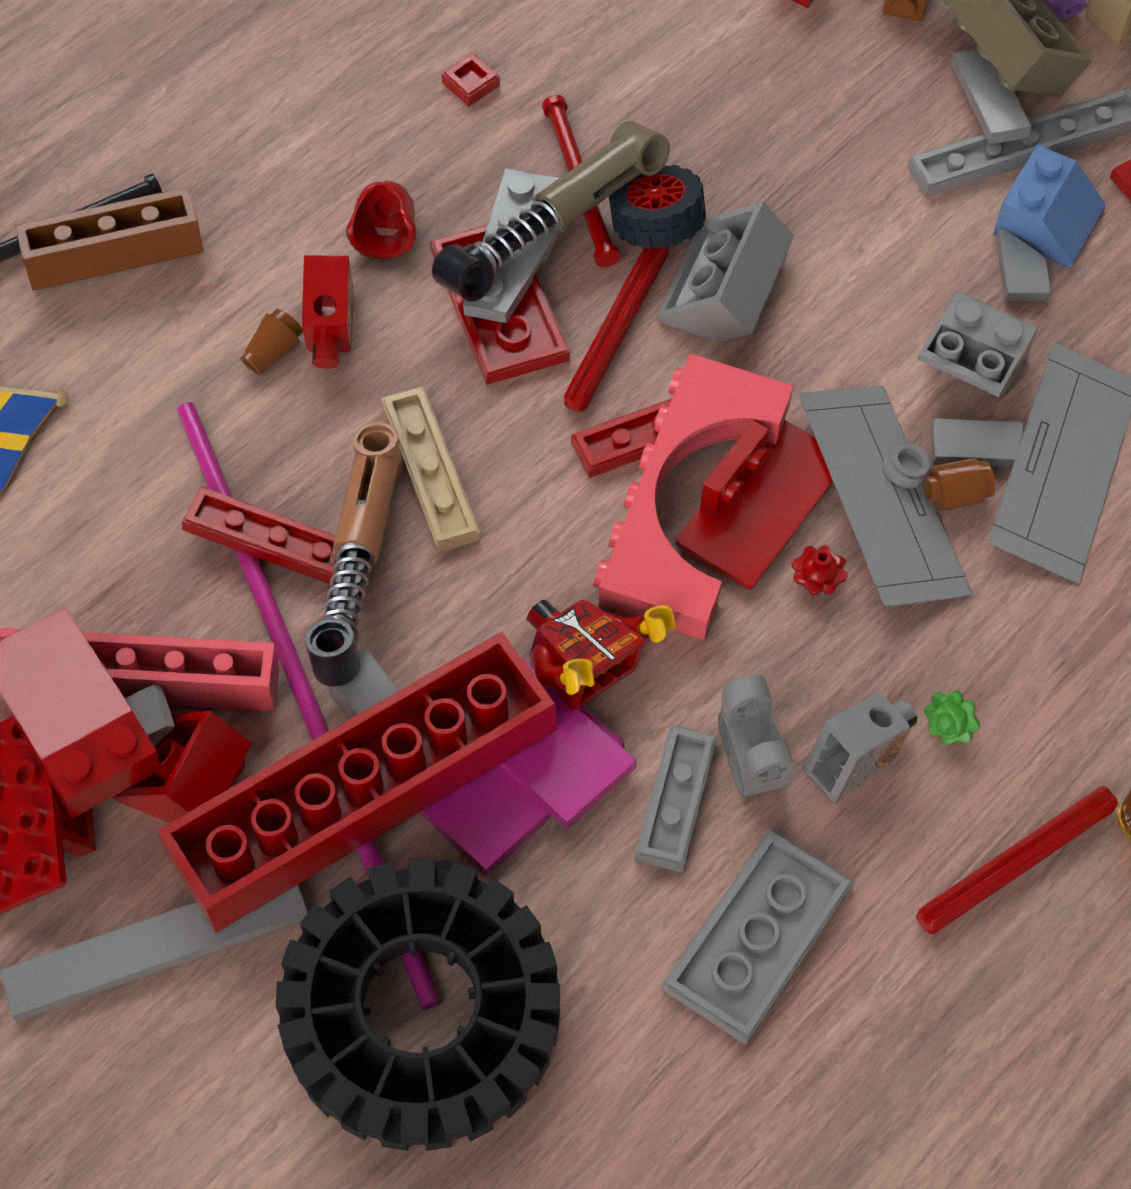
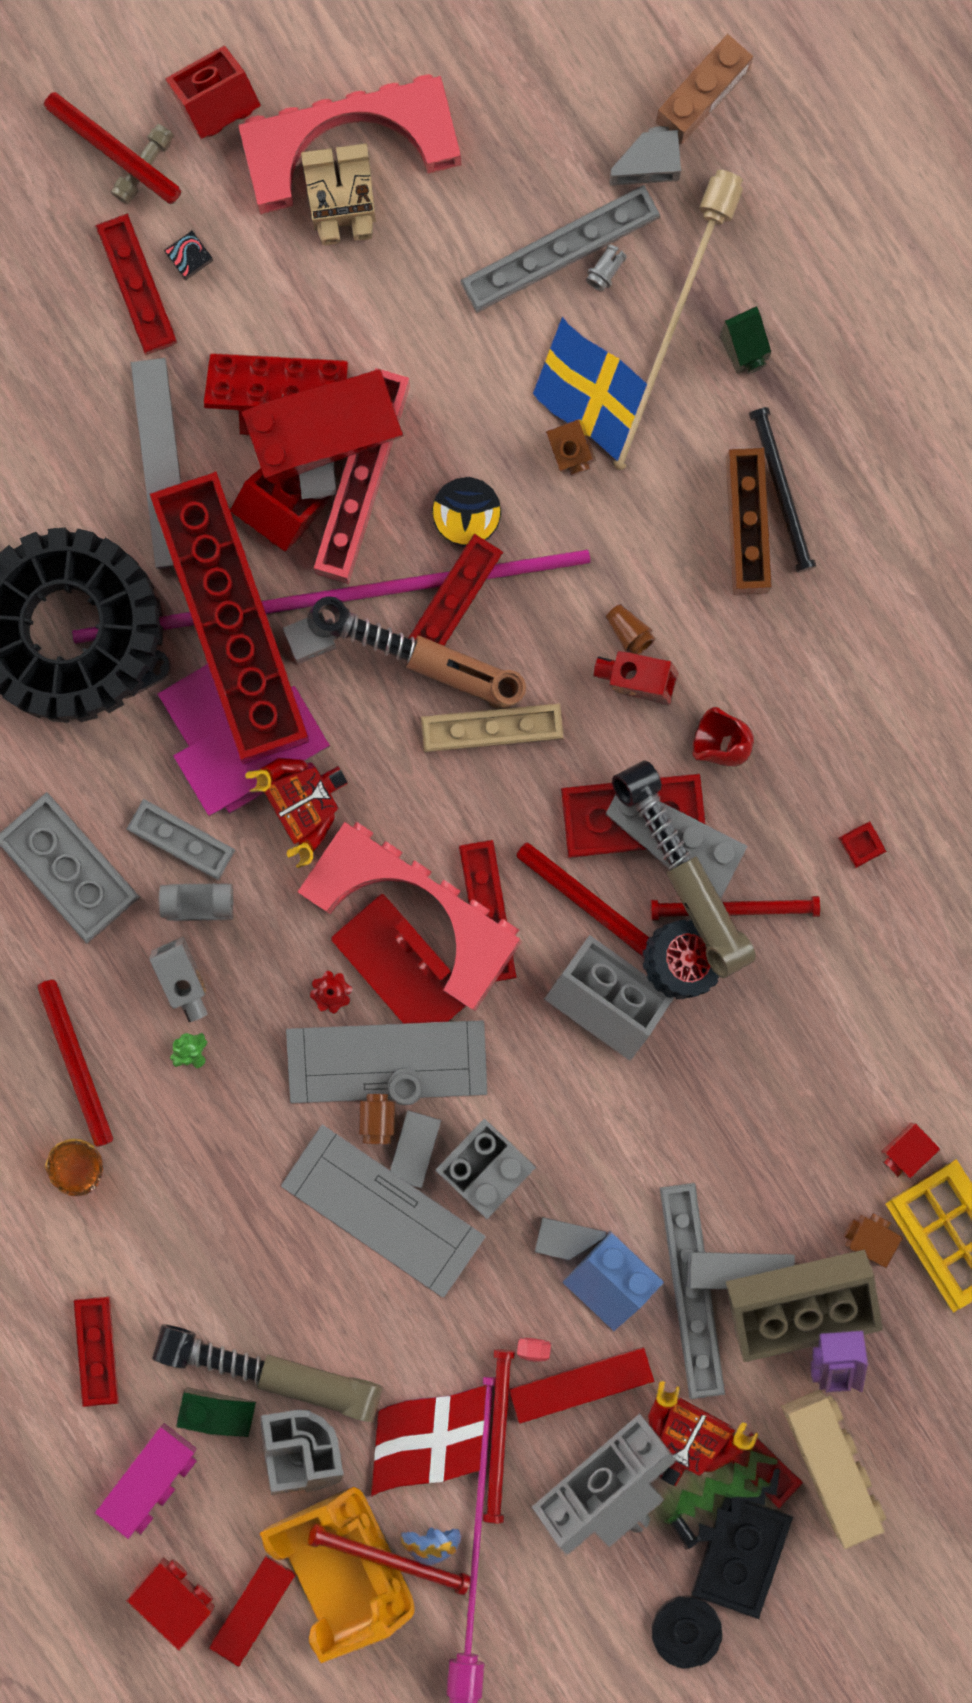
camera: 105 degrees right, 25 degrees up
(47, 442) = (571, 447): none -> dark orange brick
(153, 552) = (464, 509): none -> tile

